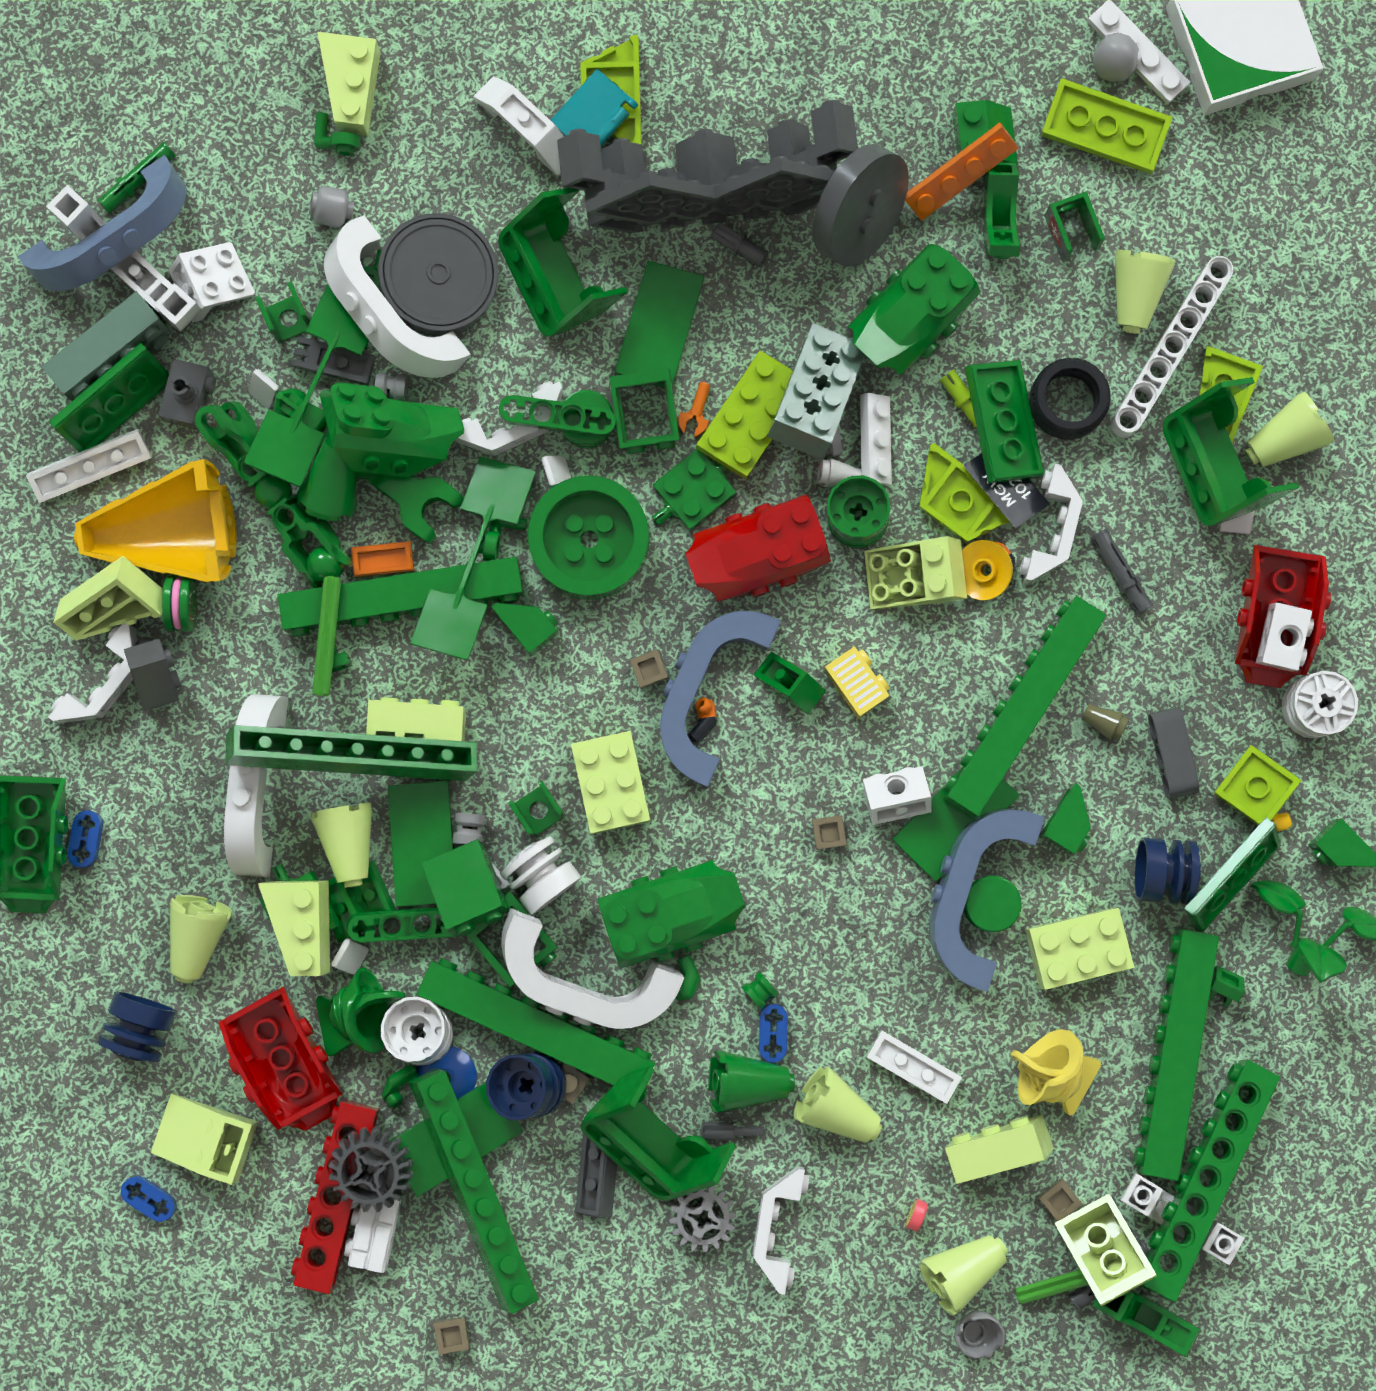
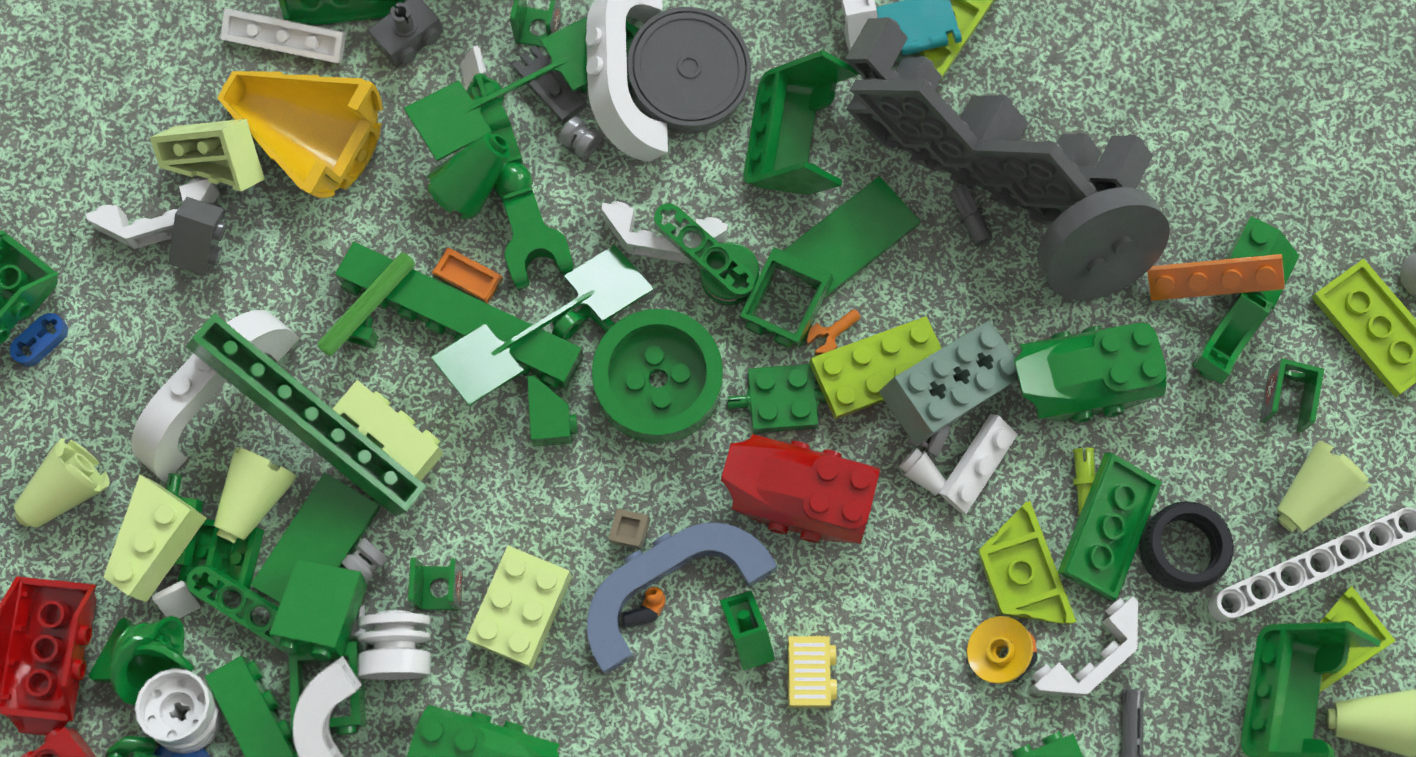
camera: 35 degrees right, 10 degrees down
(179, 604) = (266, 195): green head -> none
(234, 442) = (414, 158): green piece -> none
(387, 433) = (542, 166): green slope -> none
(555, 469) = (671, 297): white slope -> none
(858, 494) = (916, 497): green wheel -> none
(916, 573) = (934, 610): yellowish green slope -> none
(1016, 499) = (1073, 604): black sticker -> none

